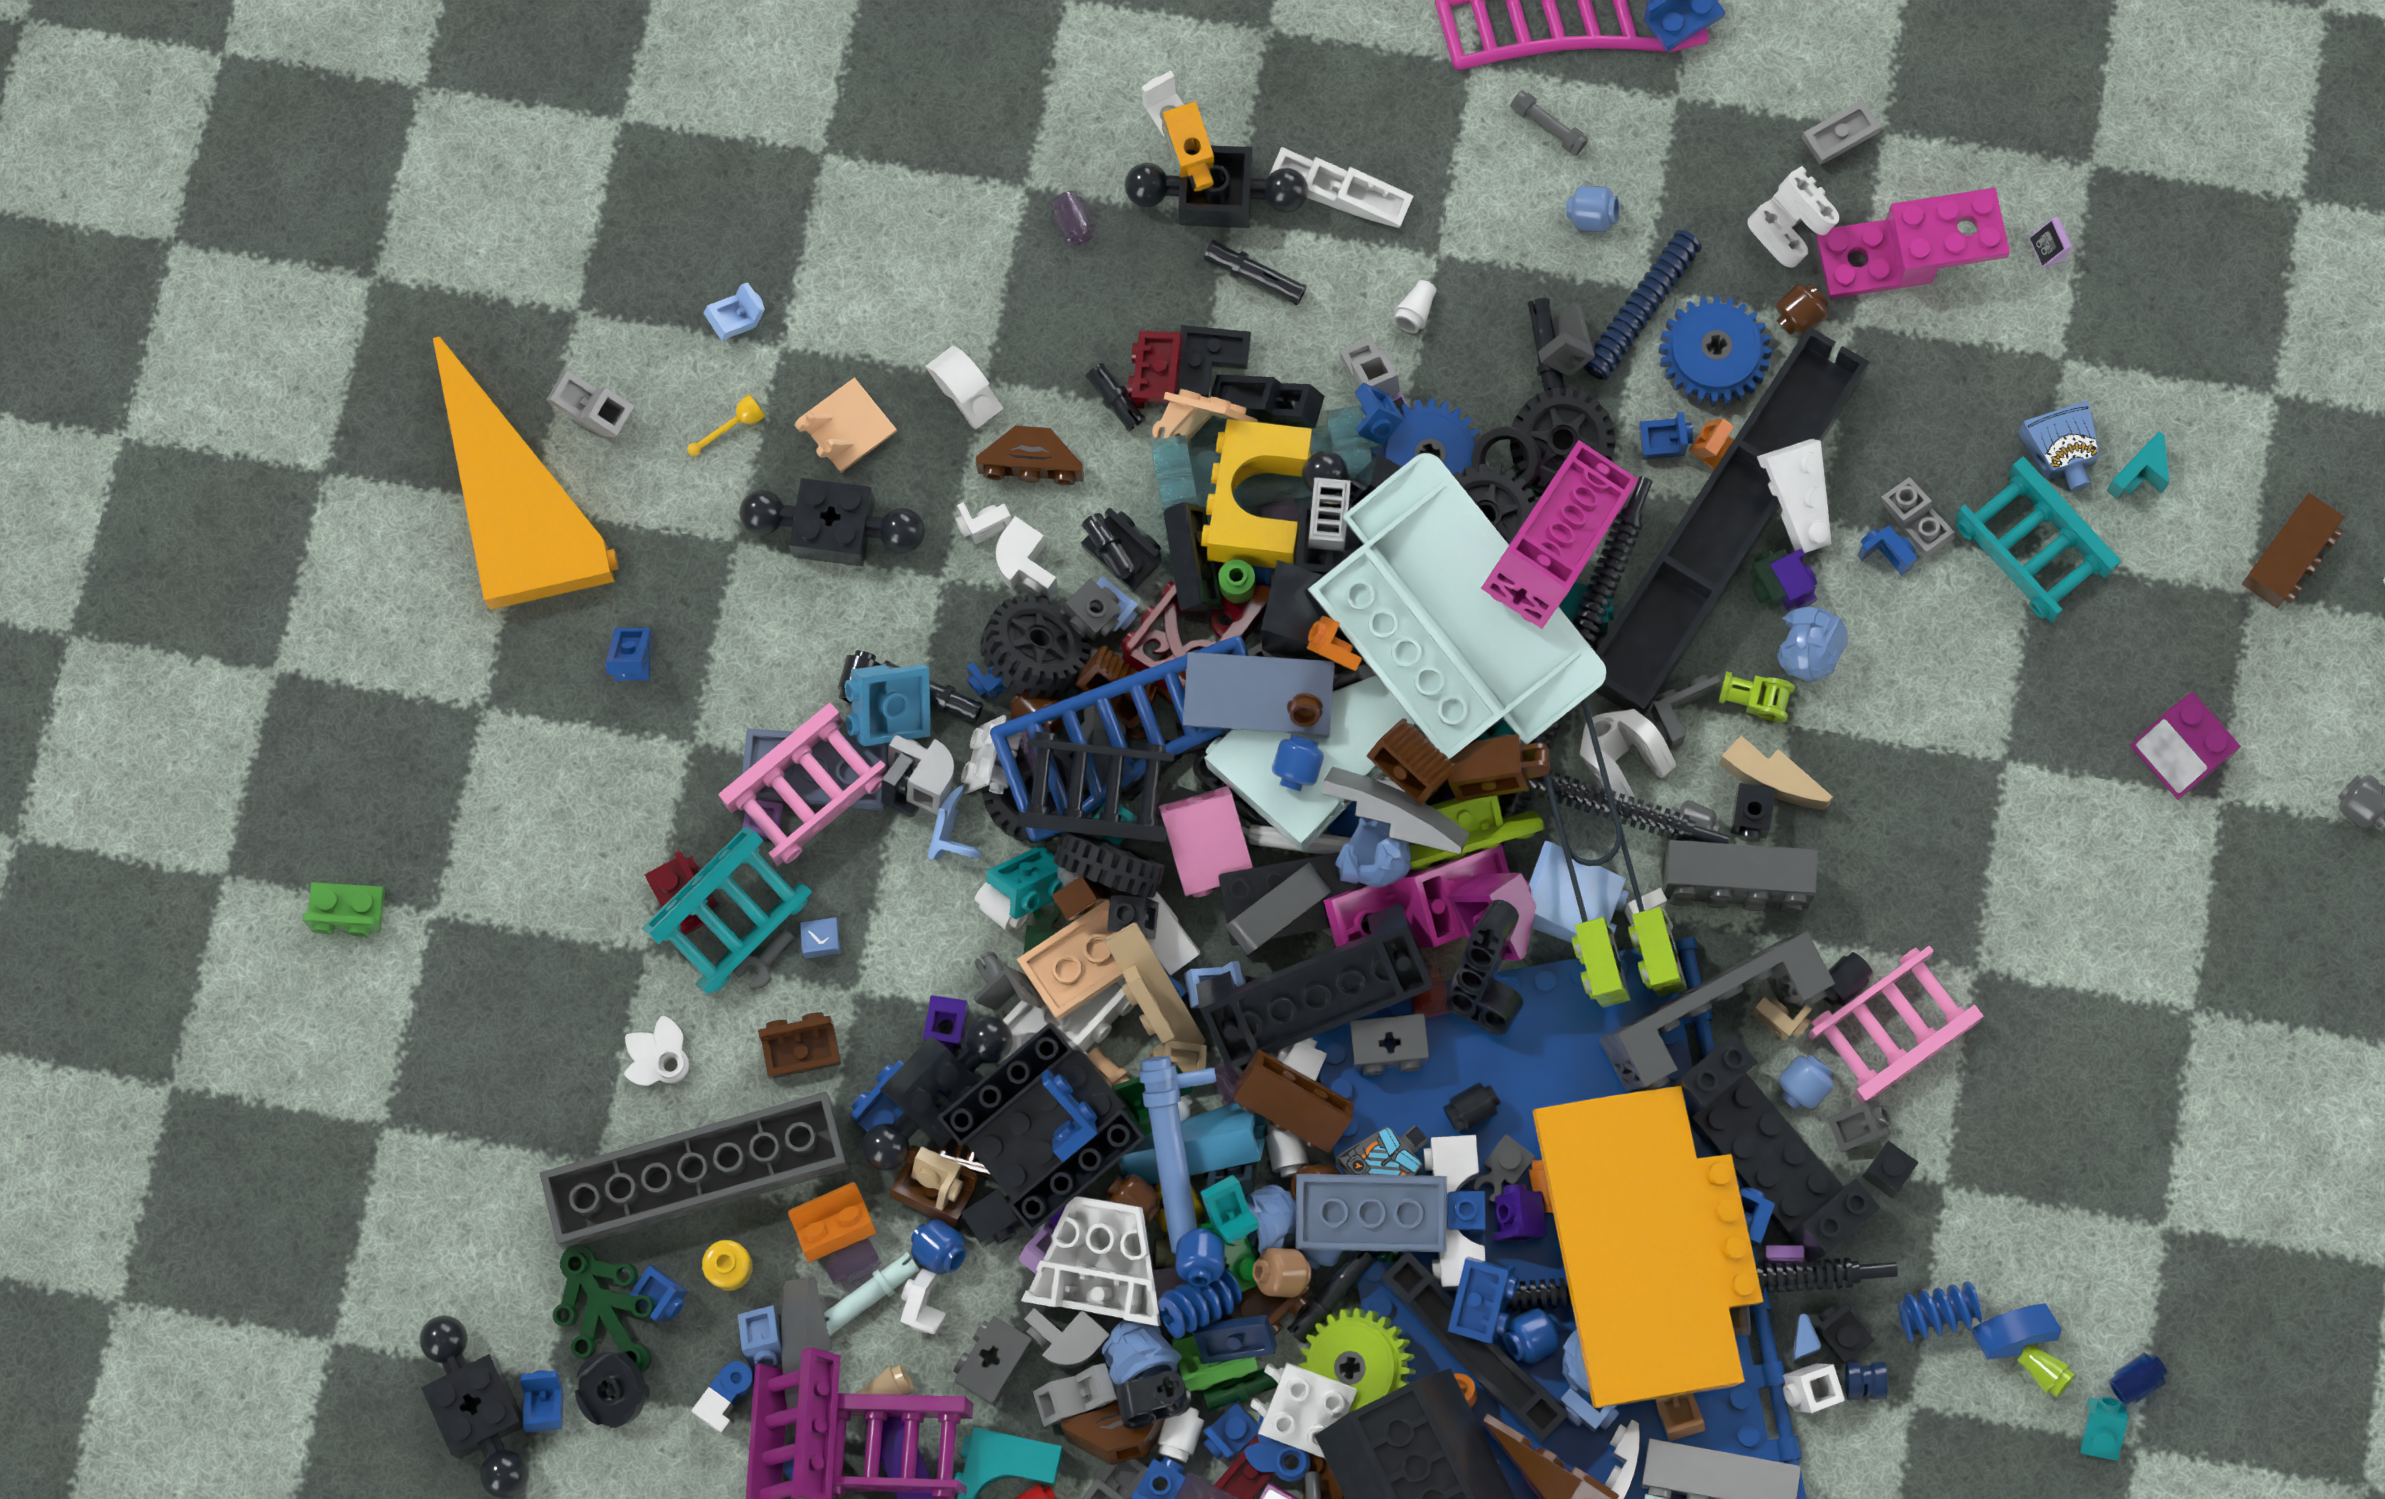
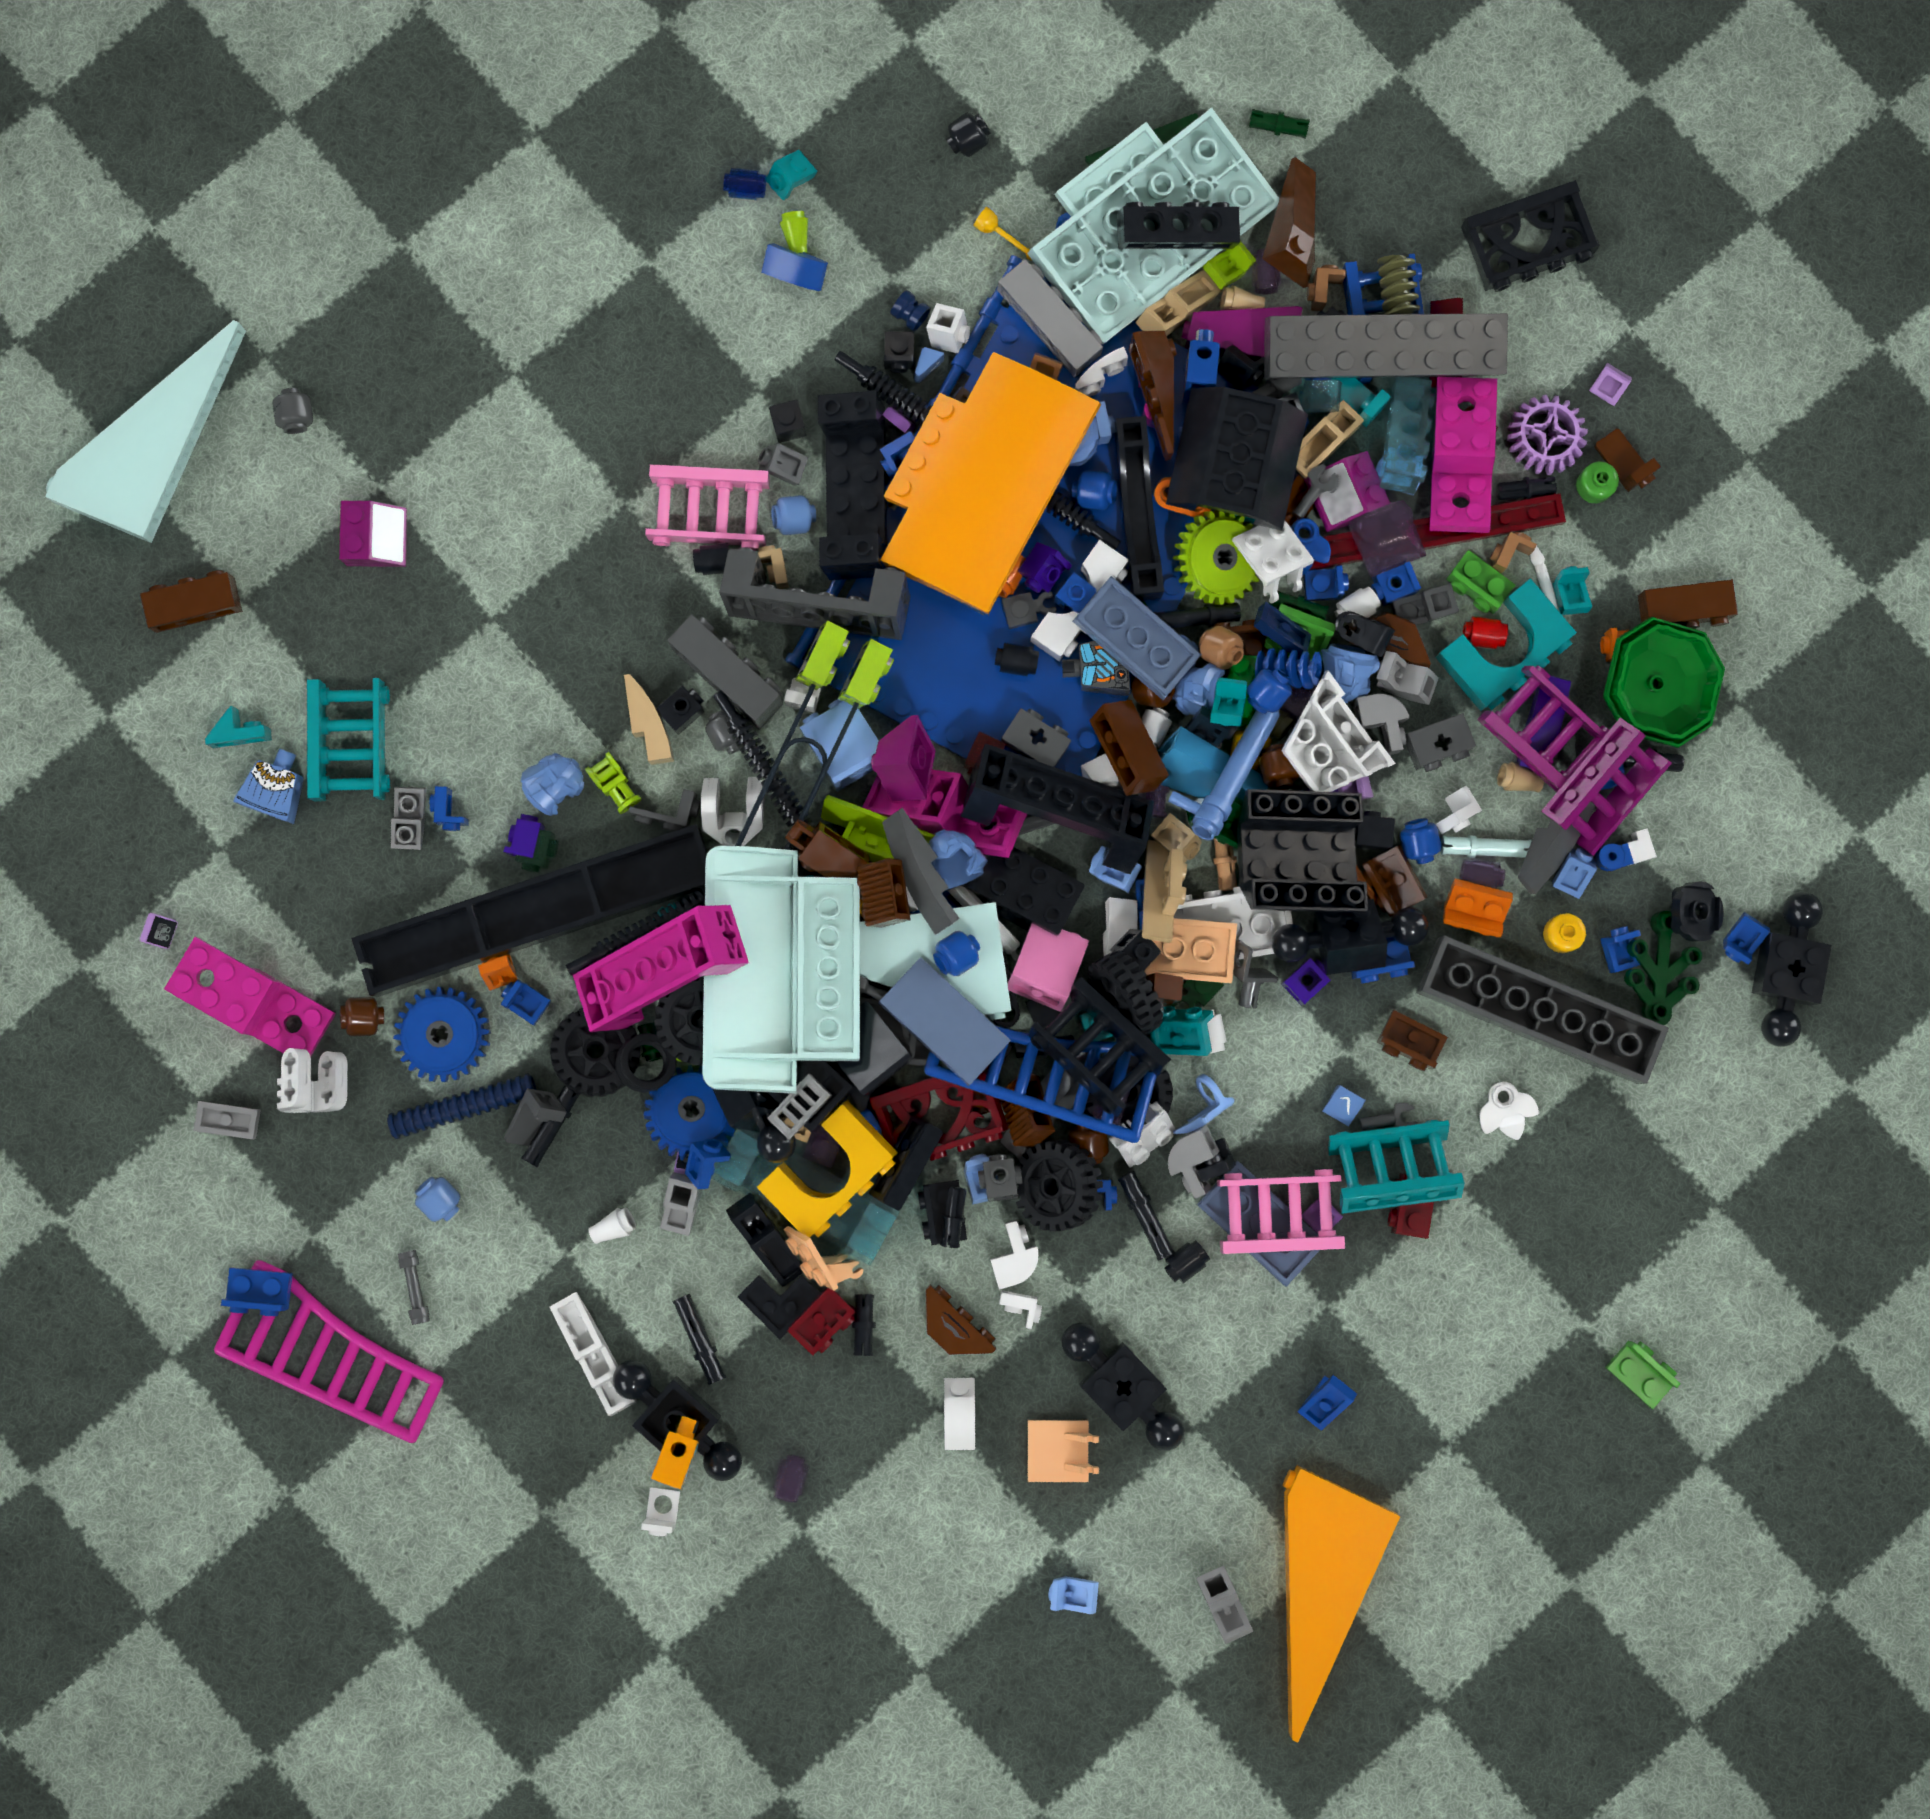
camera: 150 degrees left, 10 degrees up
(746, 412) = (1118, 1515): yellow hinge -> none
(888, 703) = (1183, 1224): dark azure plate -> none
(938, 1173) = (1389, 886): tan bracket -> none
(1075, 1134) = (1286, 829): blue bracket -> none
(1237, 591) = (883, 1113): bright green brick -> none
(1278, 908) = (1039, 878): dark grey beam -> none
(1305, 709) = (925, 982): reddish brown plate -> none
(1324, 643) = (875, 1010): orange bracket -> none
(1474, 990) = (952, 727): black beam -> none
(1483, 1300) = (1113, 529): blue bracket -> none
(1801, 490) = (472, 887): white wing -> none
(1939, 1310) = (830, 315): blue piece -> none

